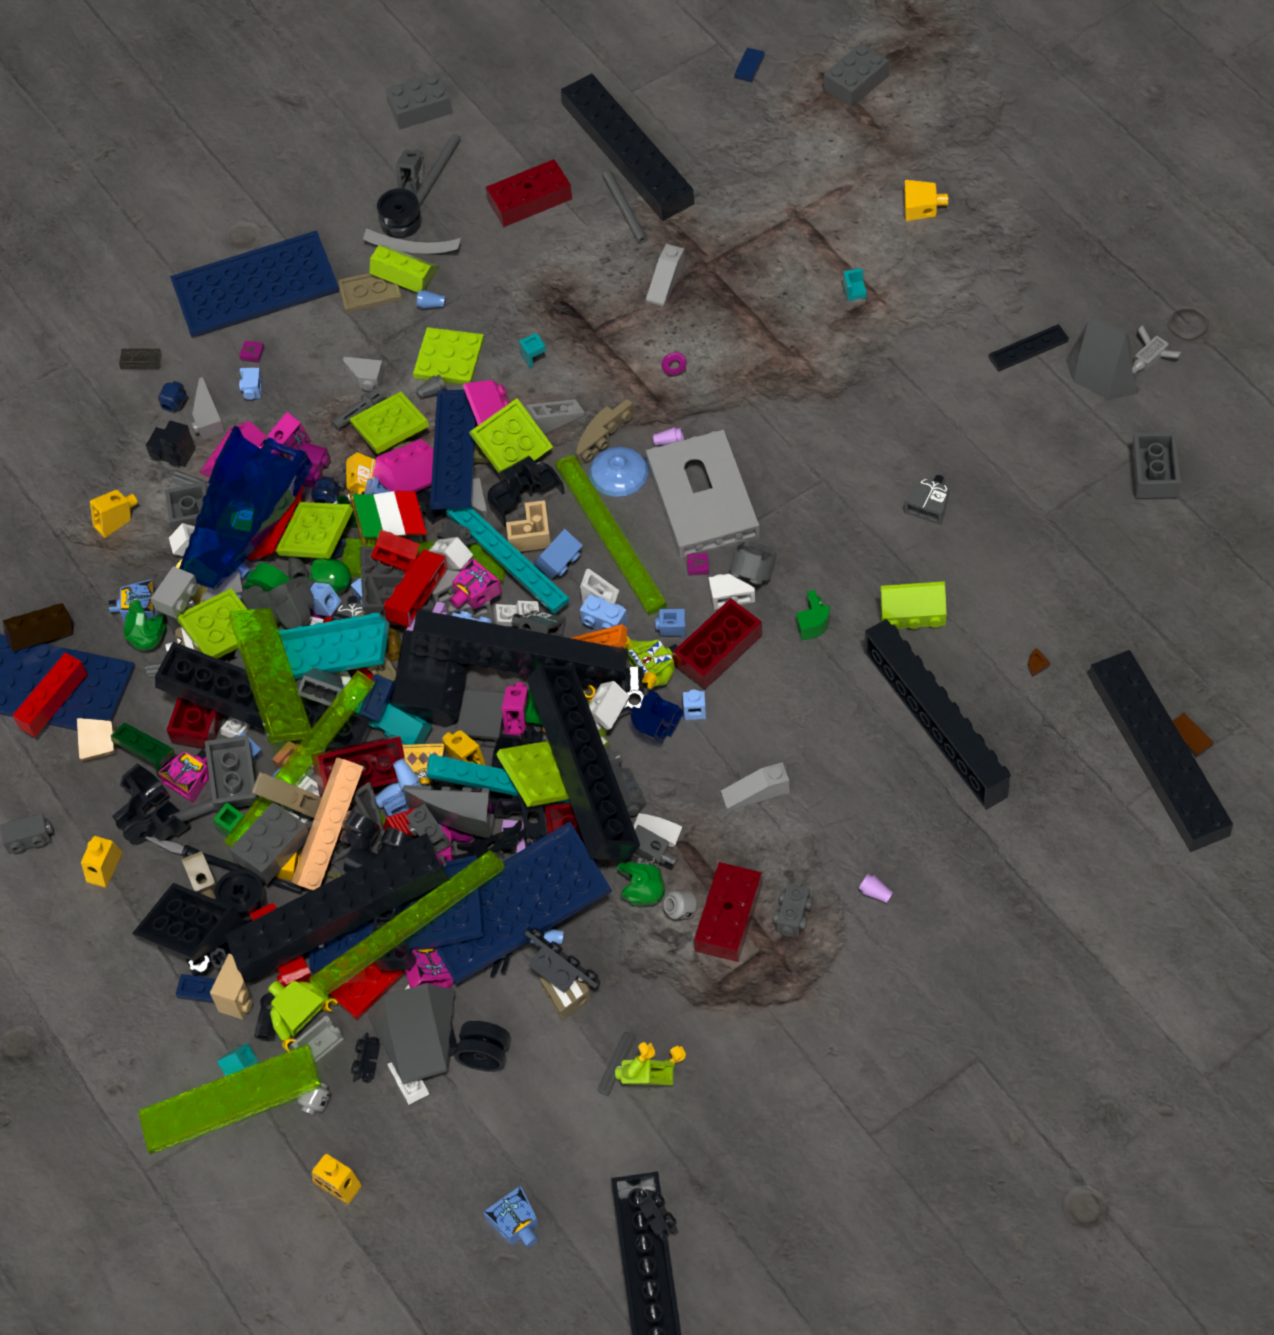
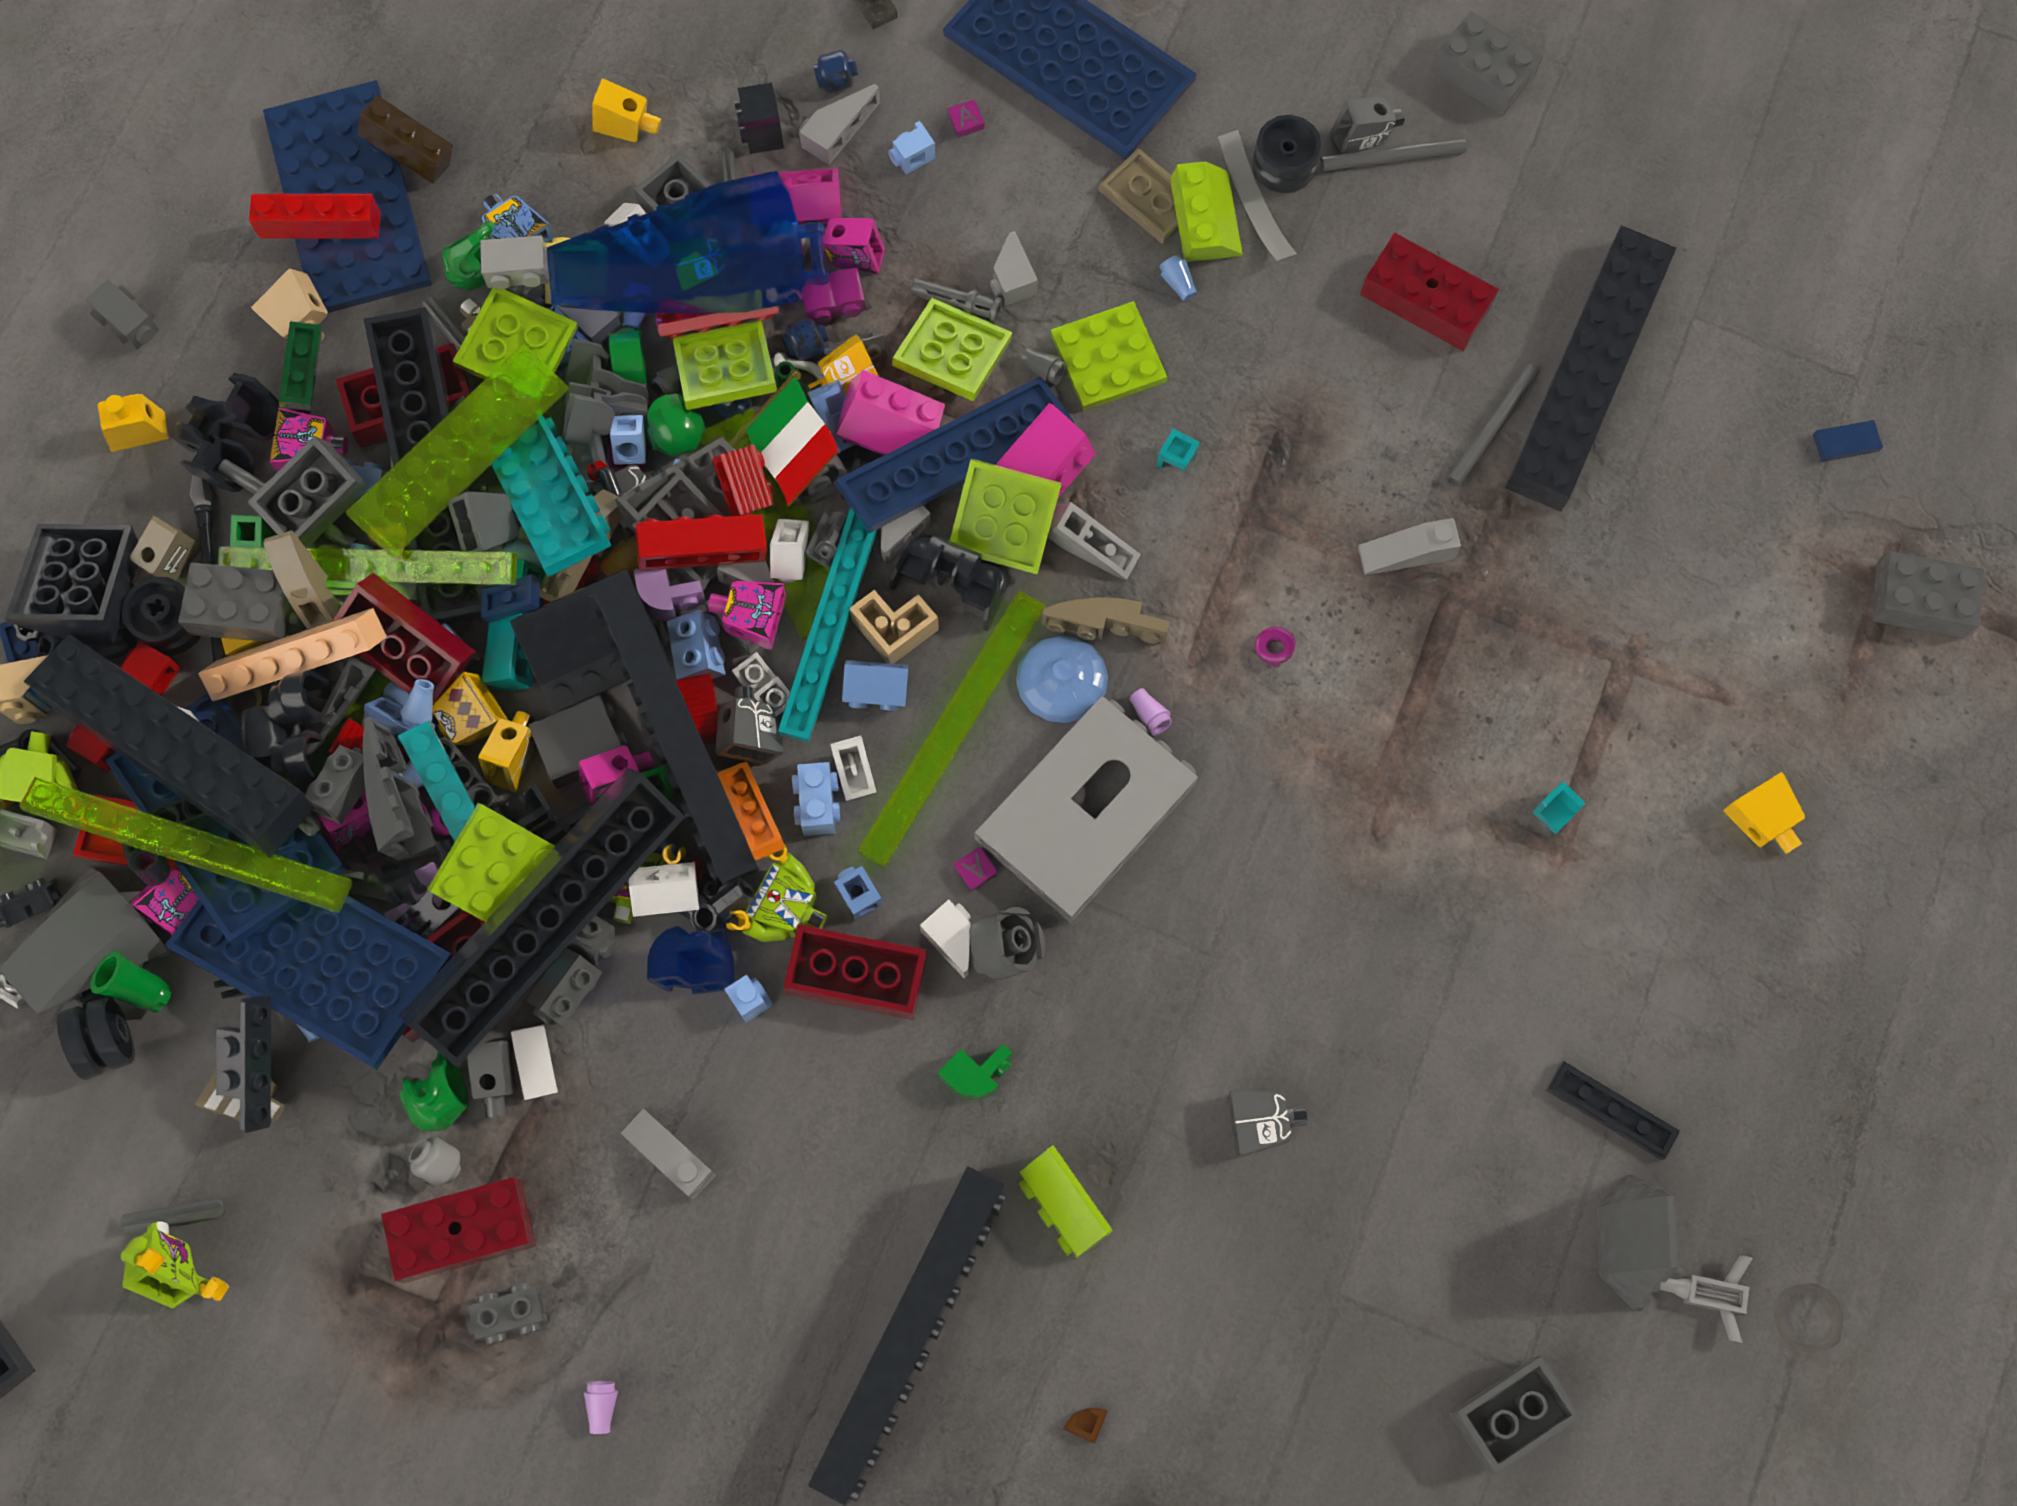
camera: 50 degrees right, 15 degrees up
(456, 1011) = (129, 983): none -> green plant

